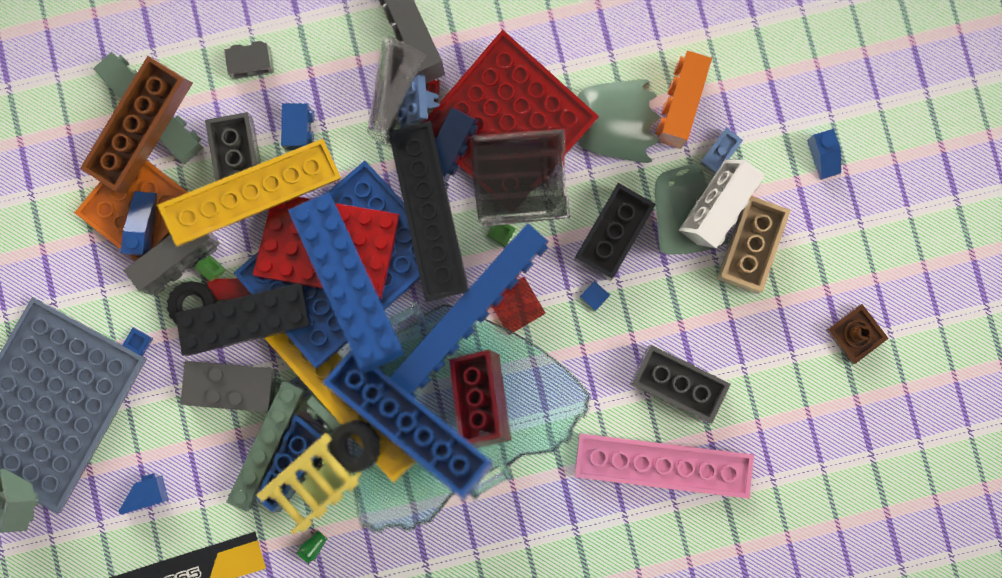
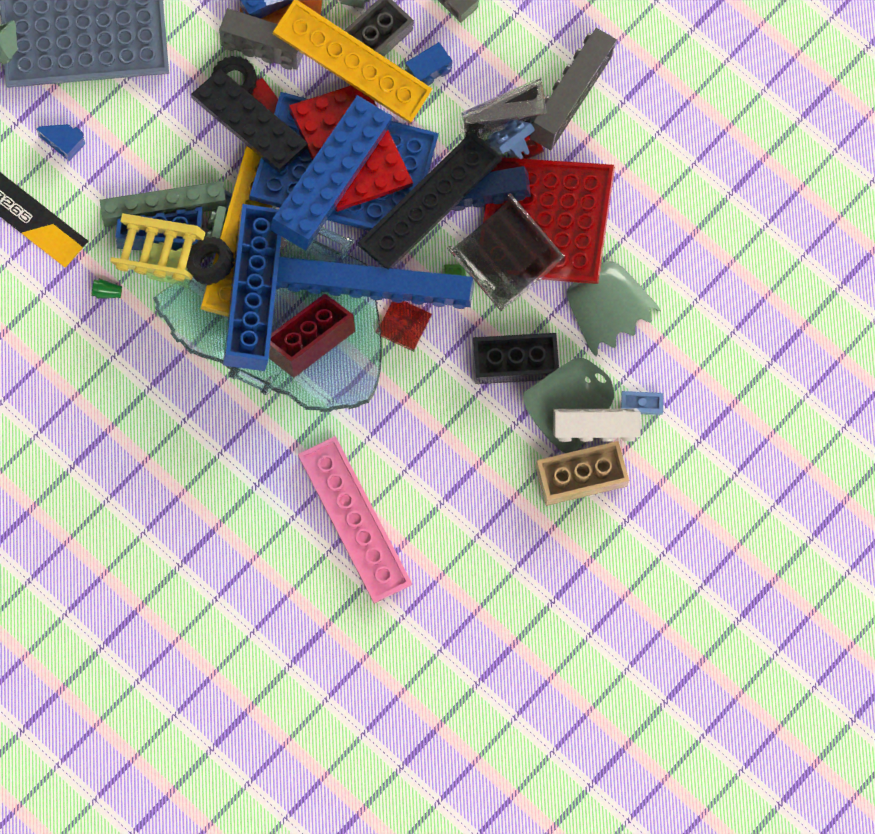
camera: 50 degrees right, 10 degrees down
(137, 341) = (177, 58): blue tile -> none
(210, 268) = (272, 73): bright green plate -> none
(228, 386) = (189, 145): dark grey brick -> none
(594, 295) = (454, 379): blue tile -> none
(680, 384) = (428, 487): dark grey brick -> none
(684, 99) = (660, 342): orange brick -> none
(826, 153) = (698, 486): blue slope -> none
(857, 334) = (568, 605): reddish brown plate -> none

